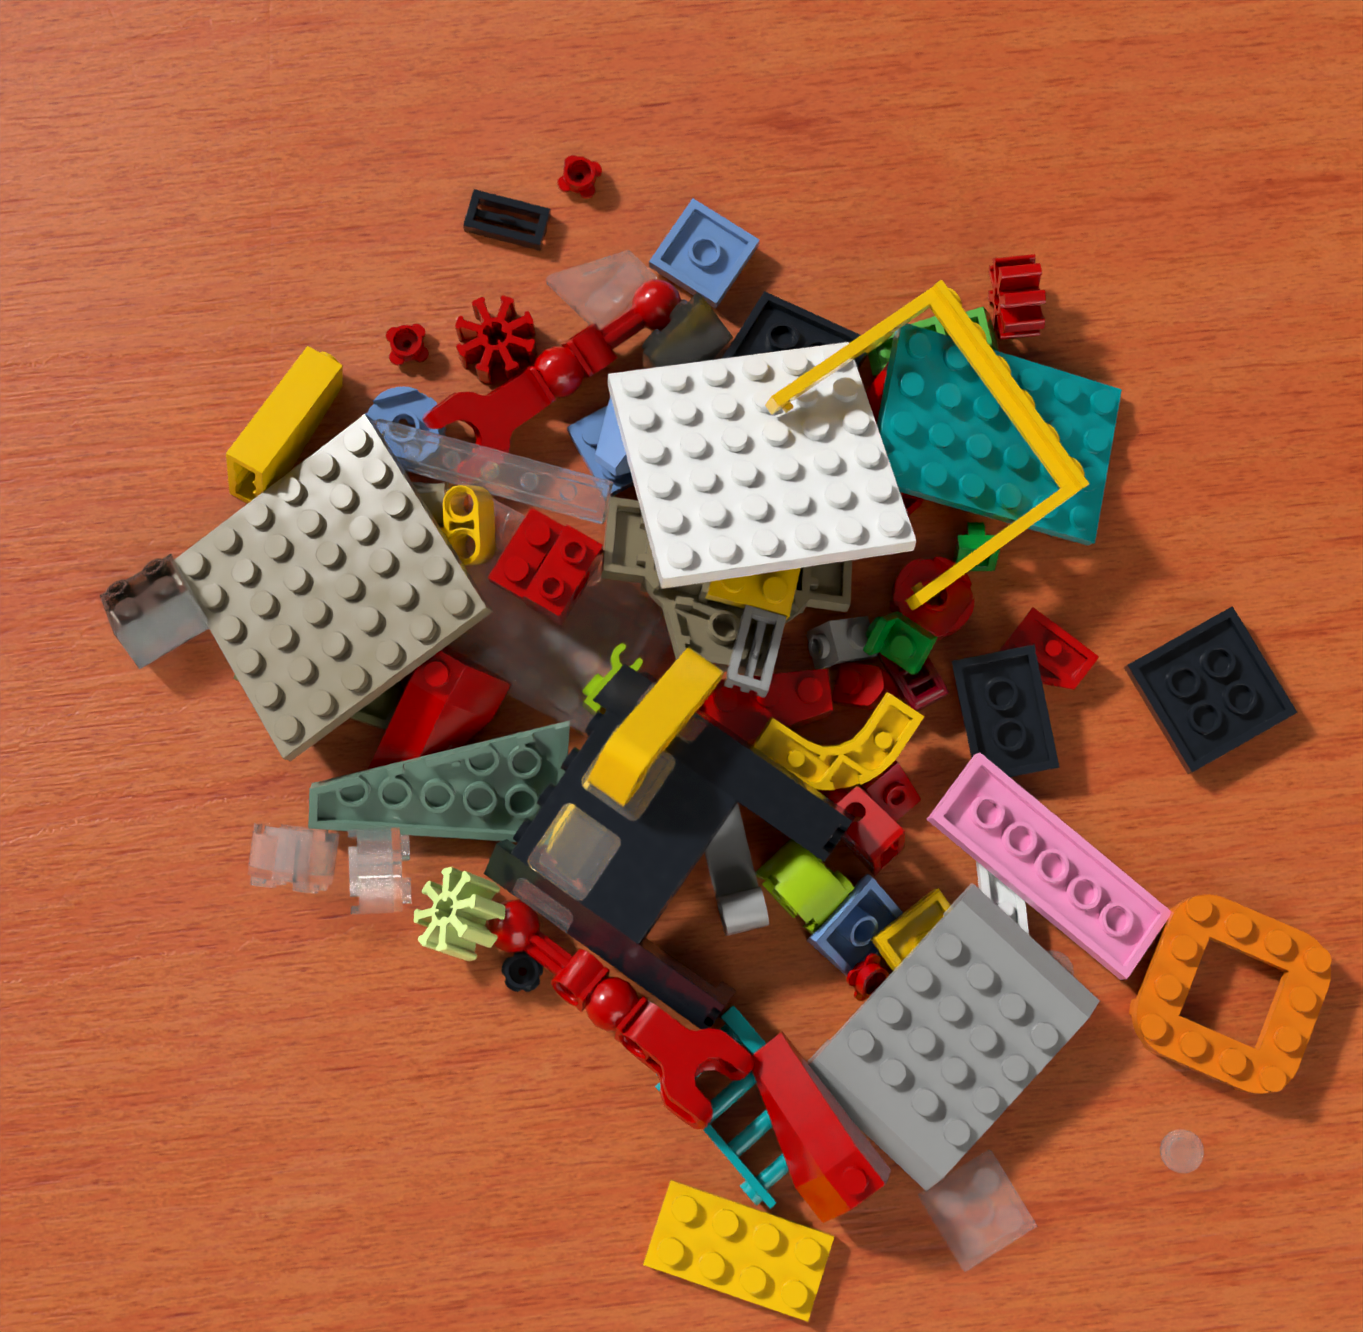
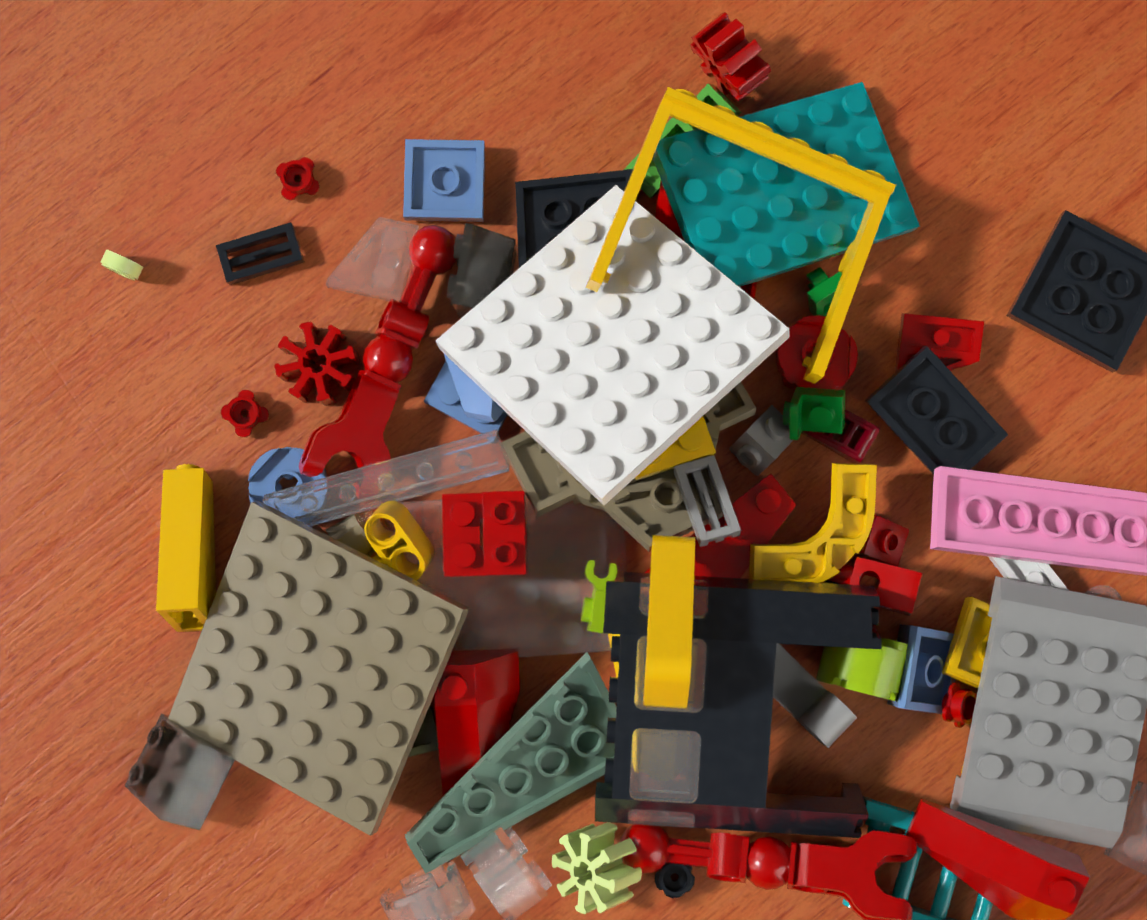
camera: 20 degrees left, 5 degrees up
(383, 157) = (121, 265): none -> yellowish green tile
(862, 686) = (806, 466): red plate -> none

